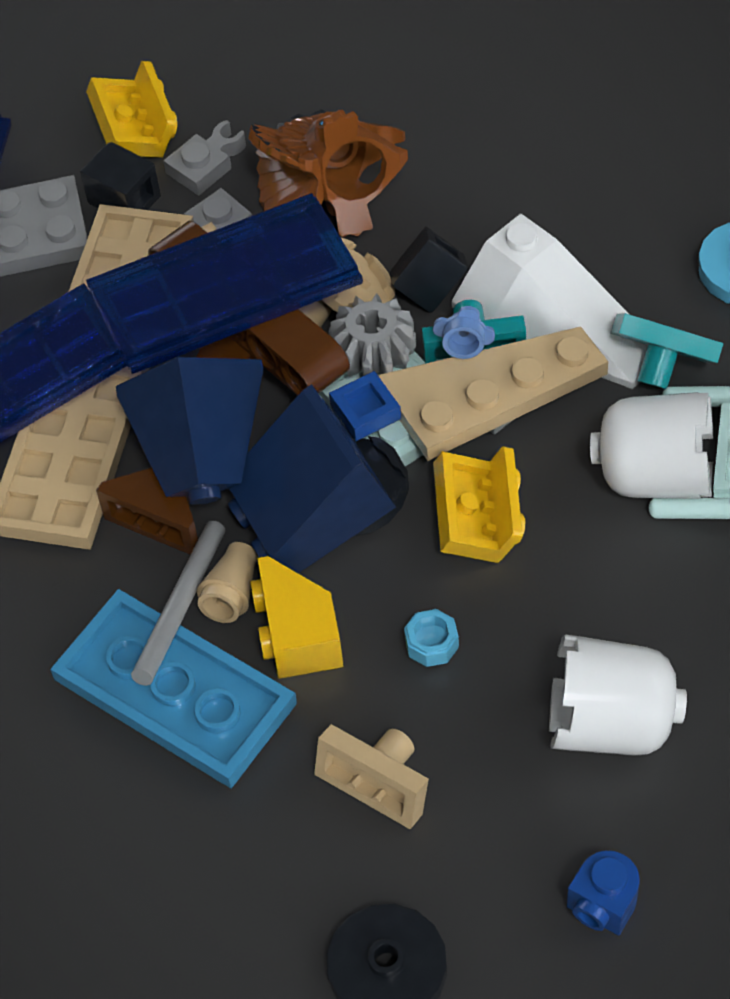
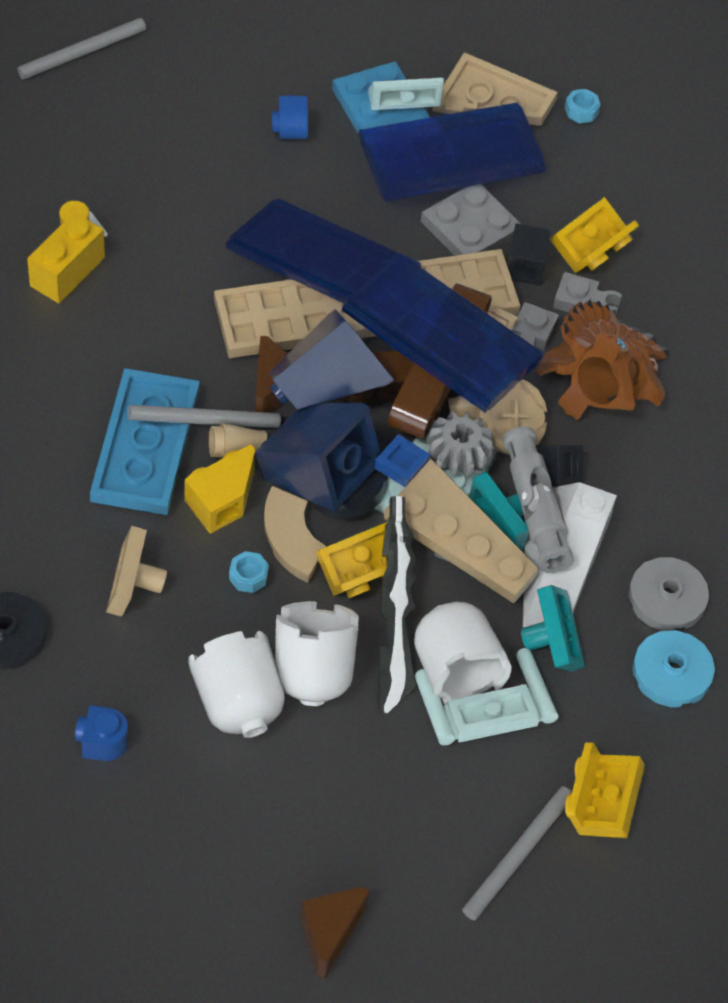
camera: 55 degrees right, 0 degrees up
(392, 576) = (288, 533): none -> tan tile
(464, 333) = (485, 494): medium blue plate -> none
(466, 284) = (537, 500): none -> light grey piece
(563, 489) = (395, 661): none -> pearl dark grey sword
(604, 585) = (315, 651): none -> white cylinder
(648, 231) = (664, 609): none -> light grey plate

